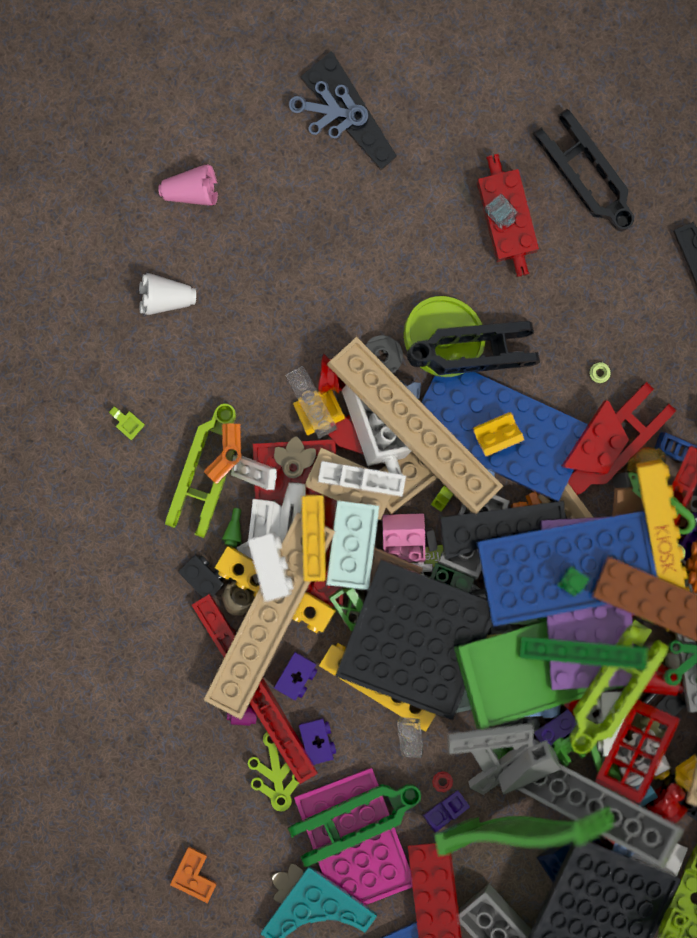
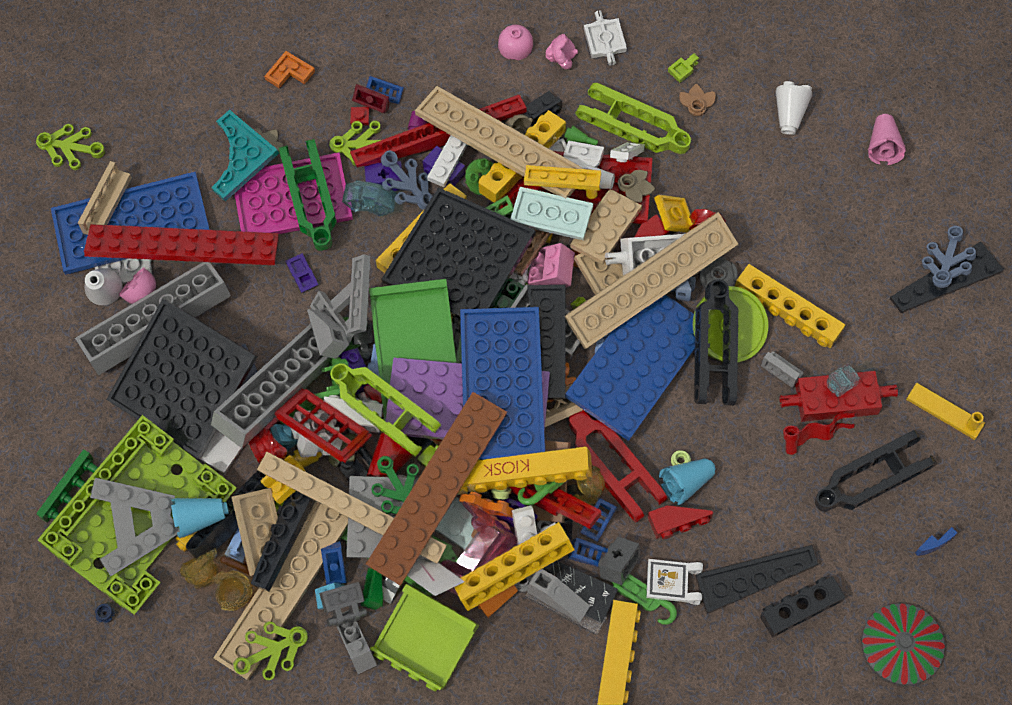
camera: 100 degrees right, 20 degrees down
(99, 517) = (605, 38): none -> white plate
(119, 619) = (515, 42): none -> bright pink cylinder
(128, 565) = (561, 51): none -> bright pink hair
(162, 402) = (697, 98): none -> medium nougat plate
(204, 780) = (372, 81): none -> blue slope
(222, 773) = (371, 99): none -> dark red slope
(231, 441) = (637, 126): orange piece -> none
(240, 783) = (360, 114): none -> red plate
(271, 566) = (542, 140): white brick -> none
(295, 673) = (447, 161): none -> white plate
(306, 641) = (472, 173): none -> bright green plate
(311, 402) = (682, 203): clear plate -> none
(324, 710) = (408, 183): none -> sand blue plant
(348, 752) = (369, 197): none -> clear light blue brick
(361, 478) = (609, 228): white slope -> none
(410, 737) = (373, 248): clear plate -> none
(430, 227) = (800, 307): none -> yellow brick
(435, 781) = (328, 268): red plate -> none
(482, 276) = (781, 368): none -> light grey bracket
(498, 434) = (635, 348): yellow bracket -> none
(503, 103) = (946, 411): none -> yellow piece
(524, 831) = (271, 308): bright green panel -> none
(562, 259) = (796, 437): none -> red flag
(573, 581) = (489, 378): green brick -> none
(584, 653) = (421, 379): green plate -> none
(599, 443) = (614, 438): red wing -> none
(624, 363) = (686, 478): none -> medium azure cone
(656, 110) = (933, 544): none -> blue slope
(667, 372) = (673, 519): none -> red slope

